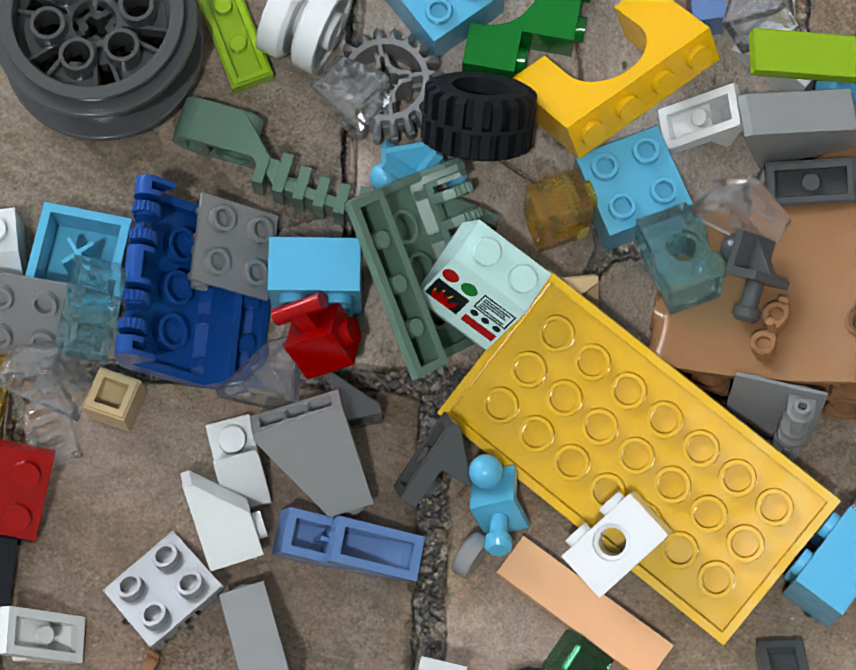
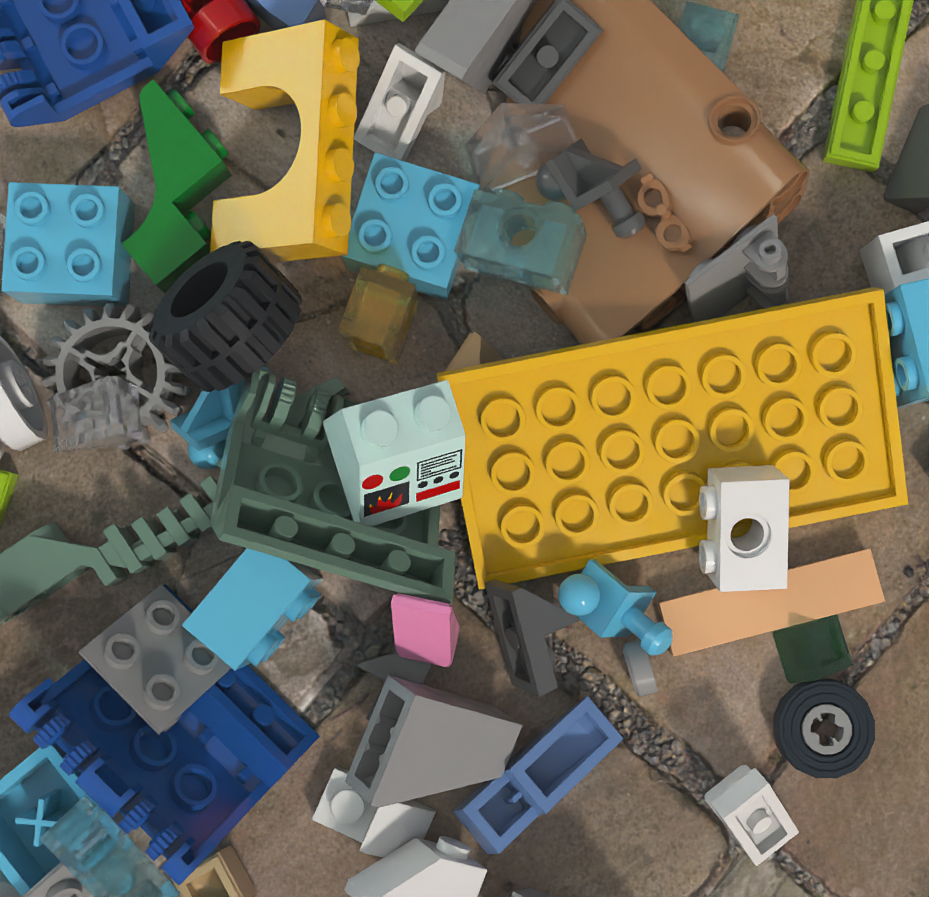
camera: 50 degrees left, 10 degrees up
(266, 379) = (313, 723): clear slope -> none
(319, 335) = (318, 649): red brick -> none
(385, 385) = (424, 629): none -> bright pink slope

